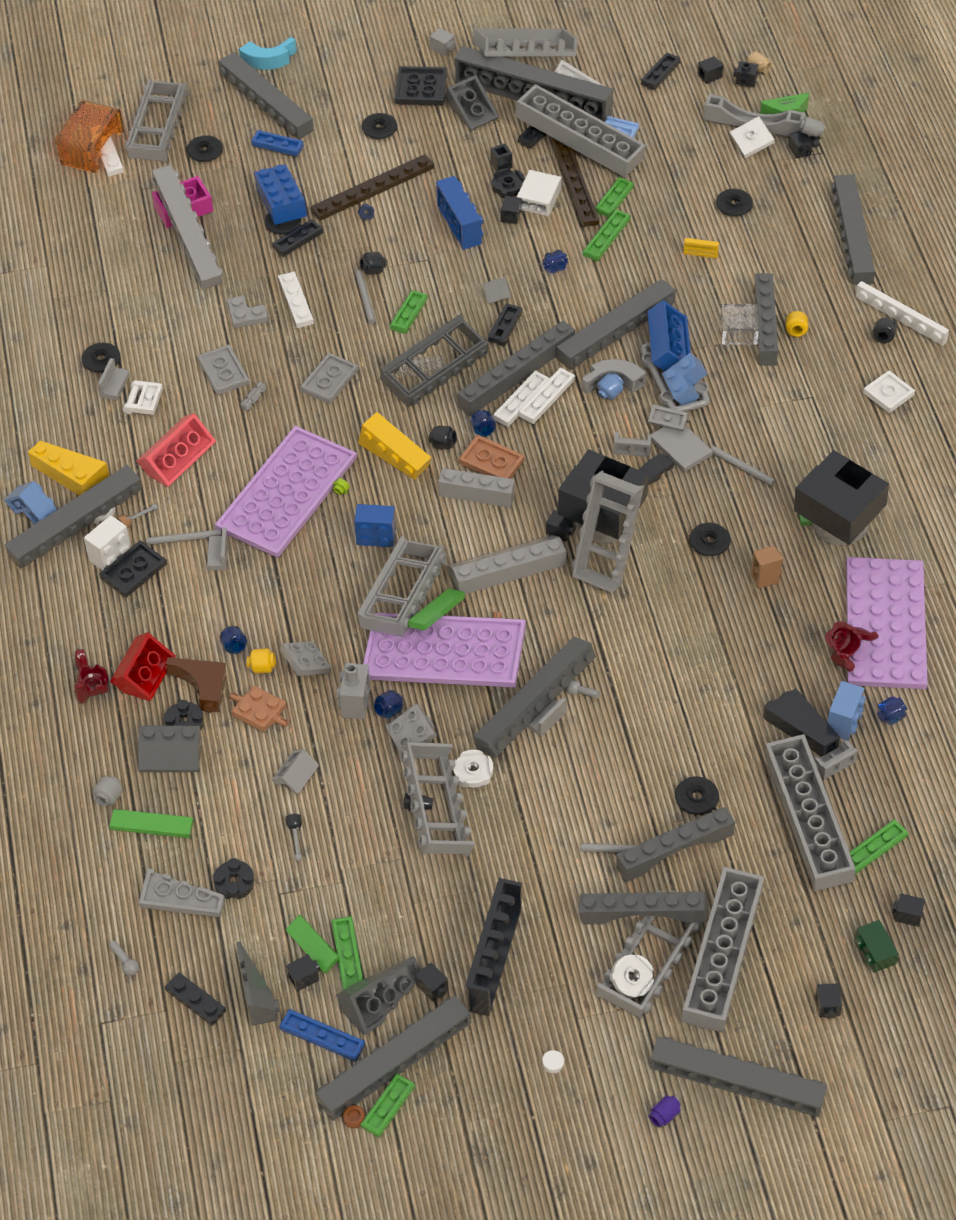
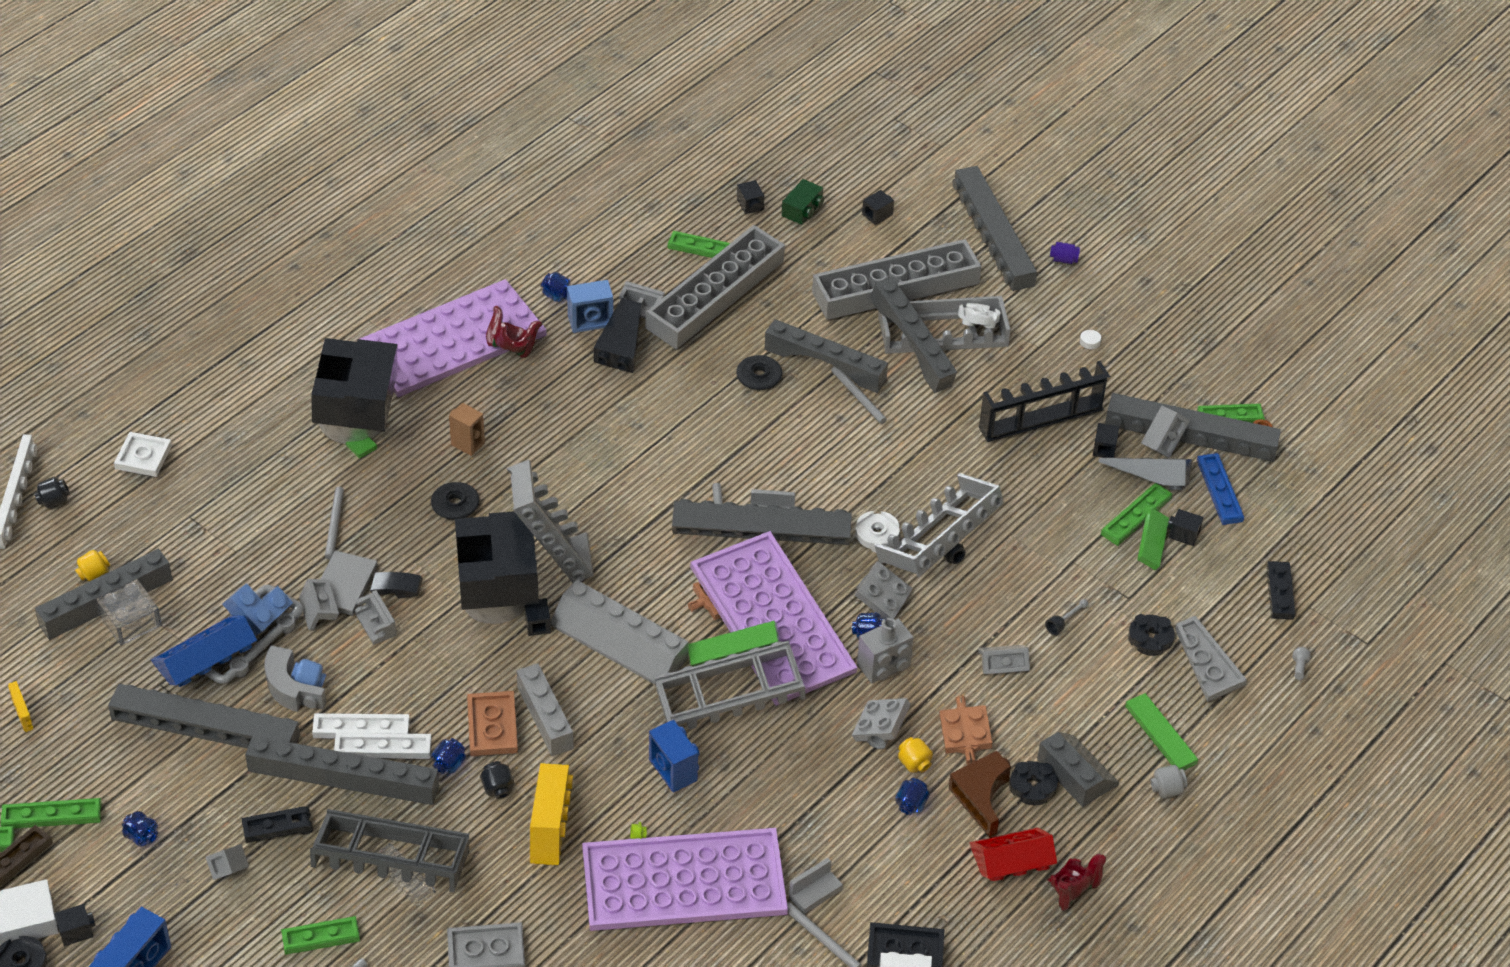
camera: 130 degrees left, 5 degrees down
(258, 995) = (1239, 541): dark grey wedge -> none
(397, 1017) = (1165, 431): none -> light grey hinge

